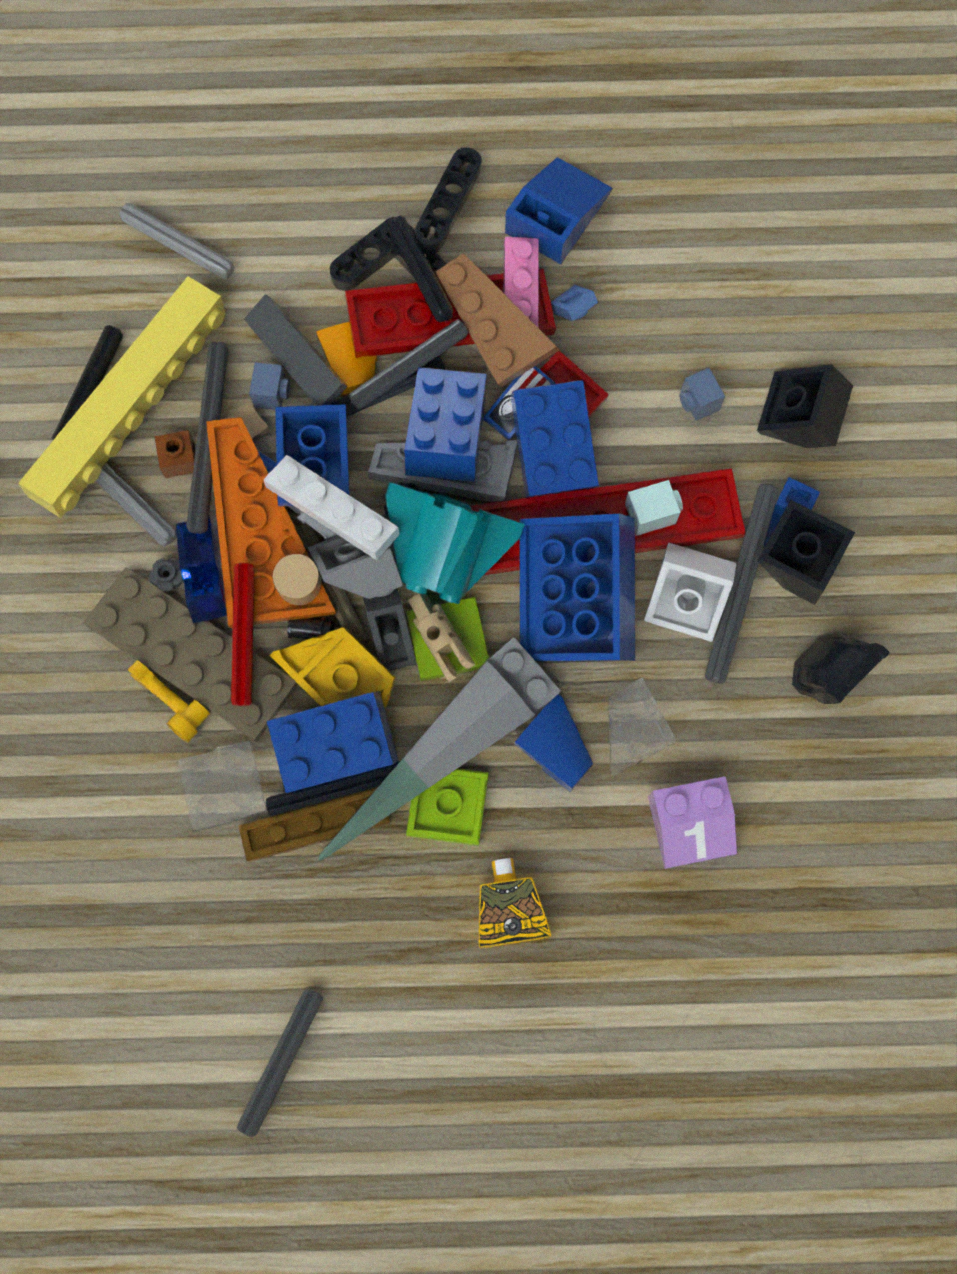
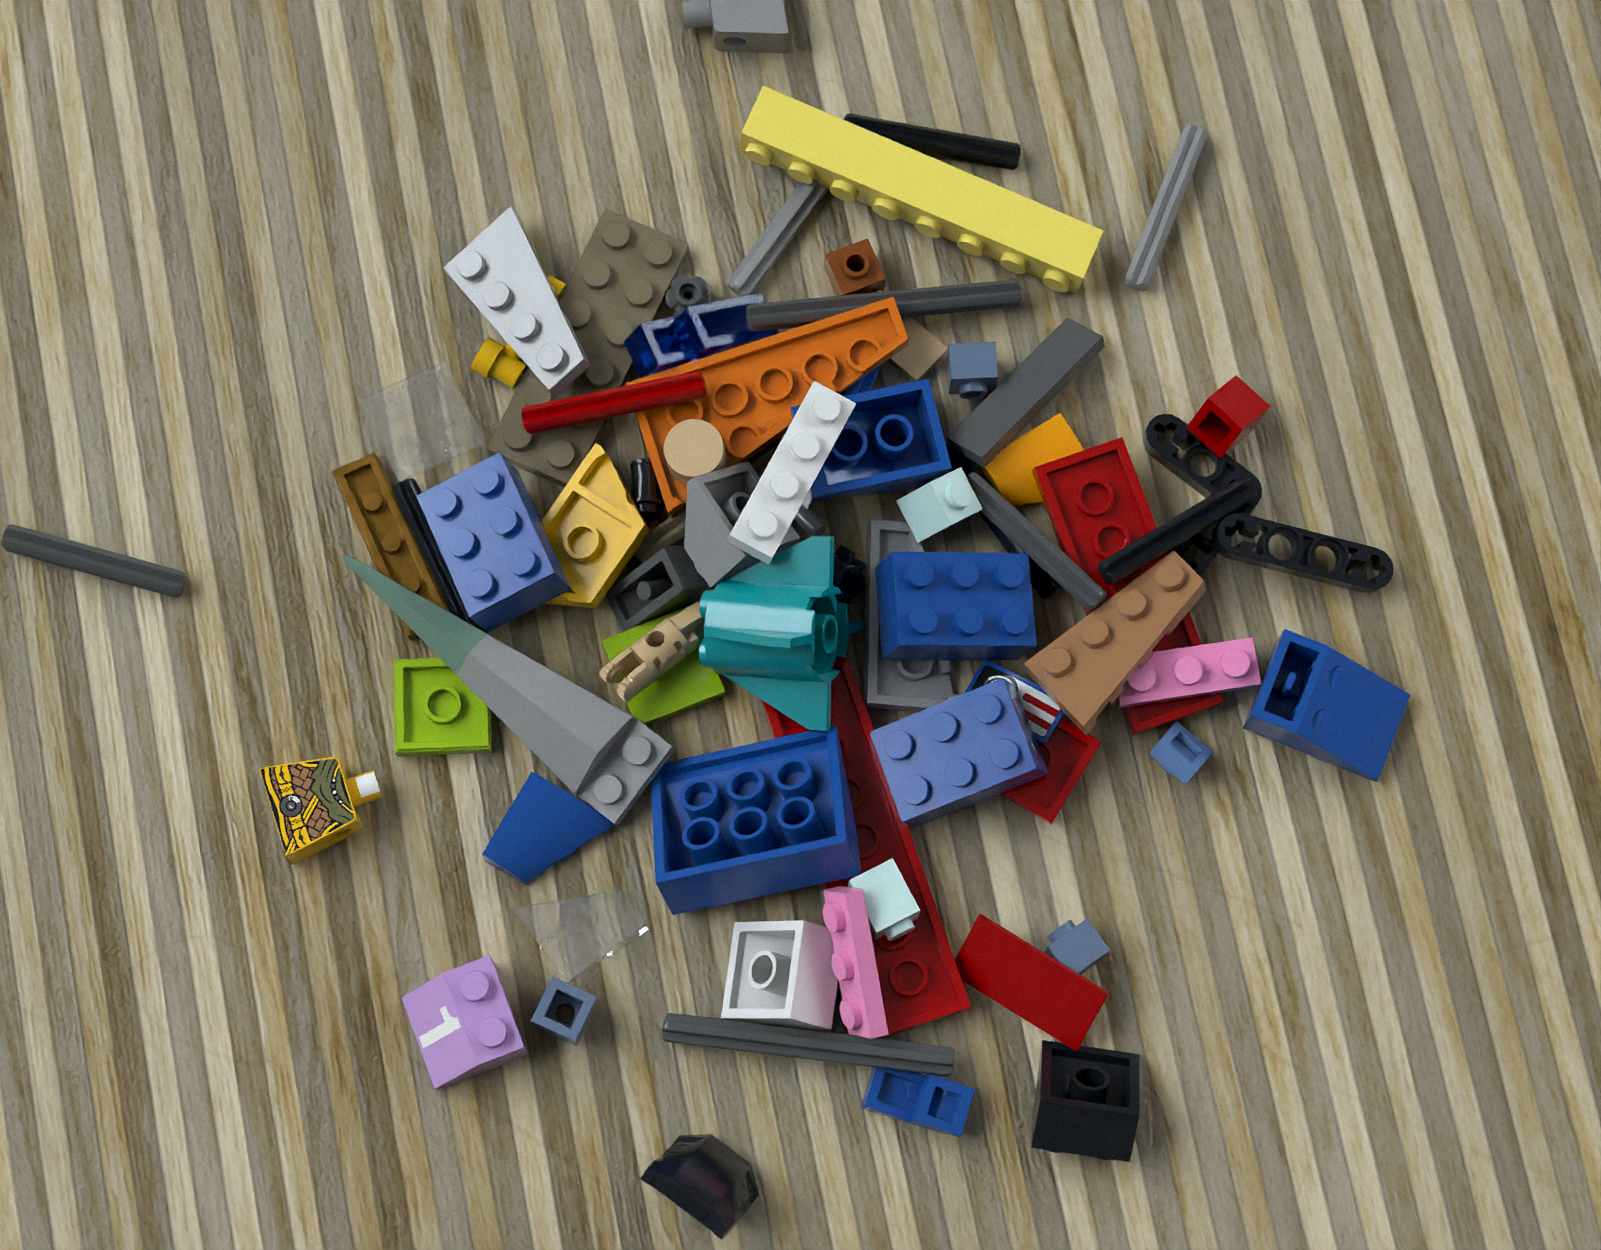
camera: 75 degrees right, 0 degrees up
(137, 697) = (514, 294): none -> wing
(342, 225) = (1228, 416): none -> red brick
(368, 421) = (939, 504): none -> light aqua brick
(694, 533) = (854, 962): none -> bright pink plate
(702, 737) = (564, 994): none -> sand blue plate
(720, 426) = (1029, 982): none -> red piece
(804, 551) = (862, 1118): black slope -> none

